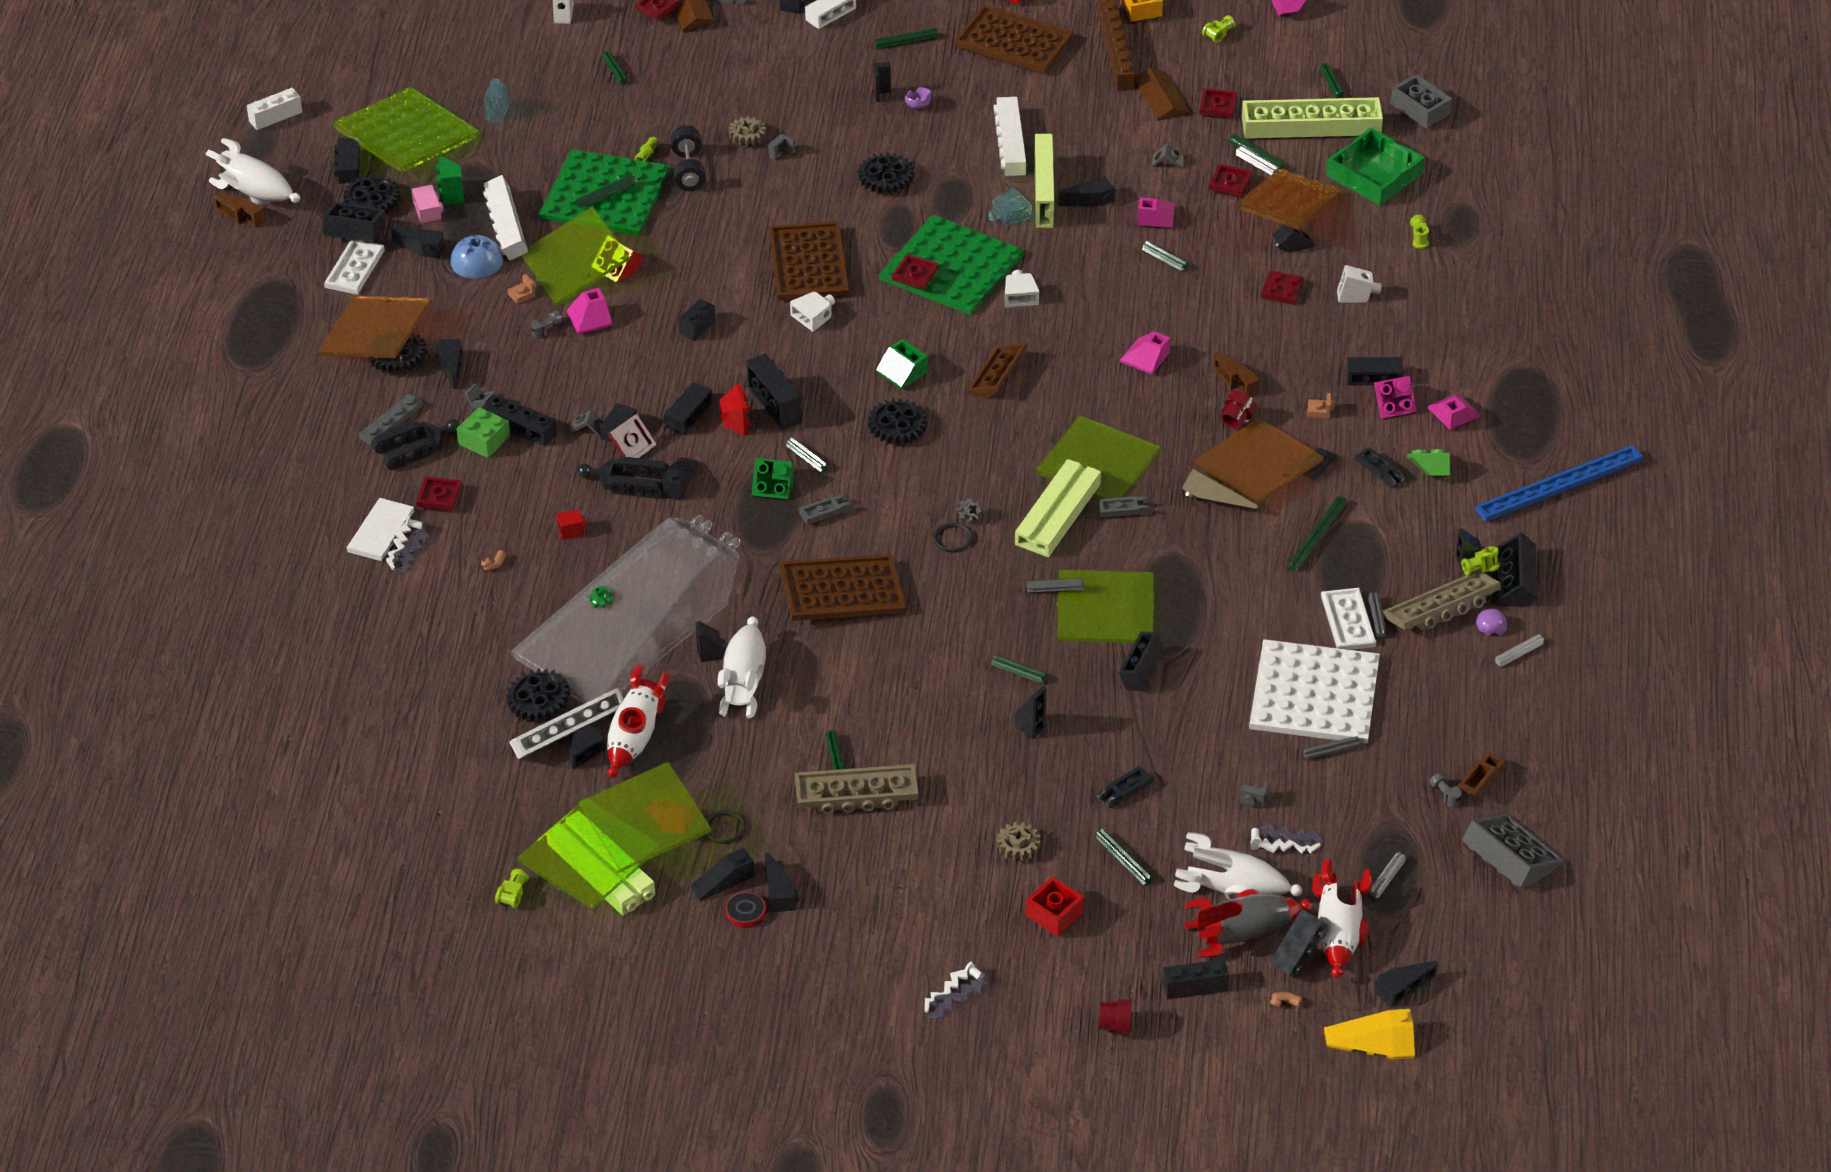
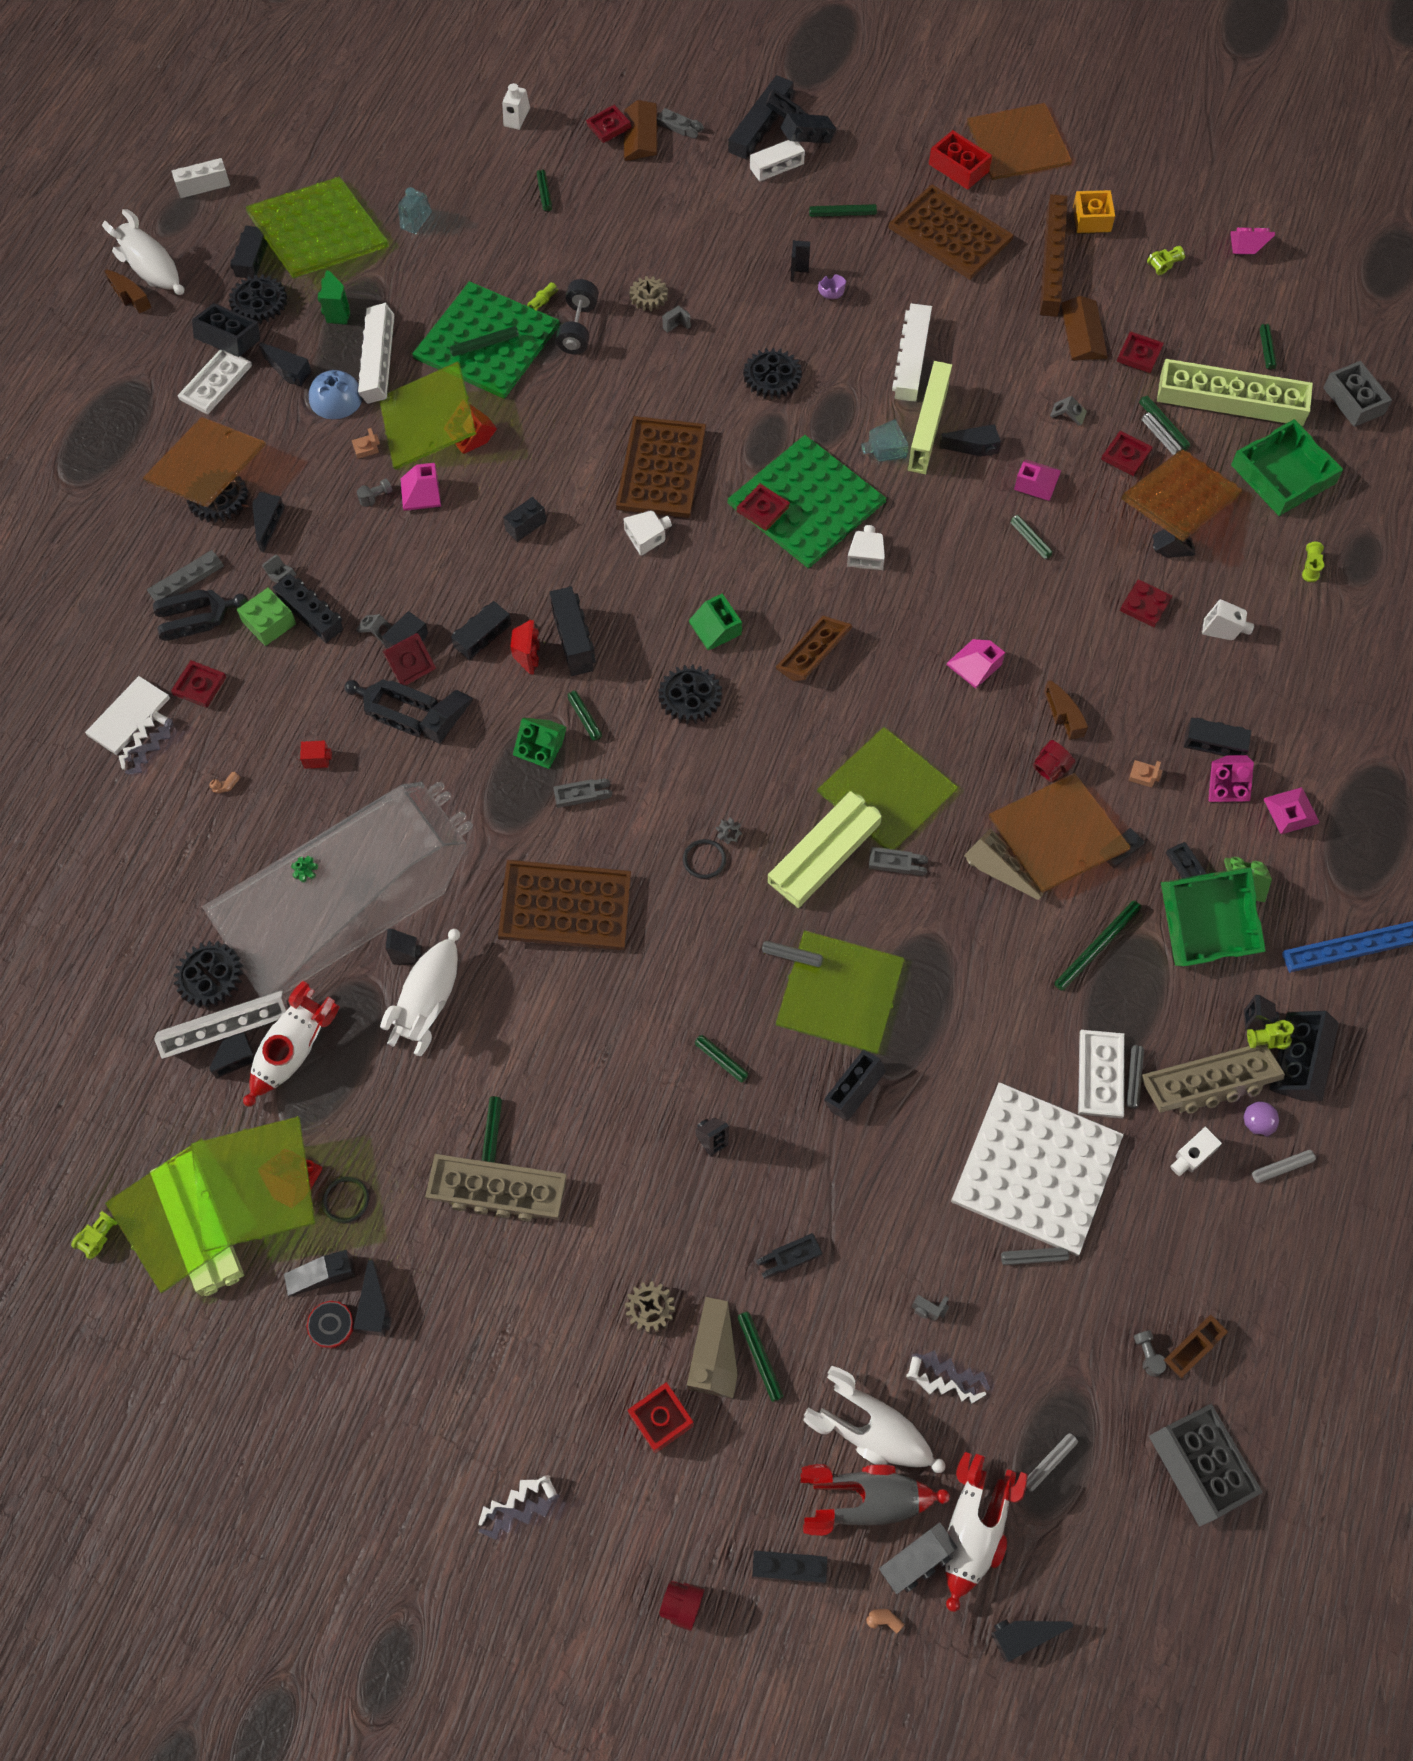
camera: 15 degrees right, 20 degrees up
(427, 203) = (307, 320): bright pink brick -> none
(1083, 863) = (713, 1360): none -> dark tan wedge
(1380, 1033) = (977, 1709): yellow wedge -> none
(1407, 488) = (1212, 916): none -> green tile
(1444, 648) = (1201, 1146): none -> white torso

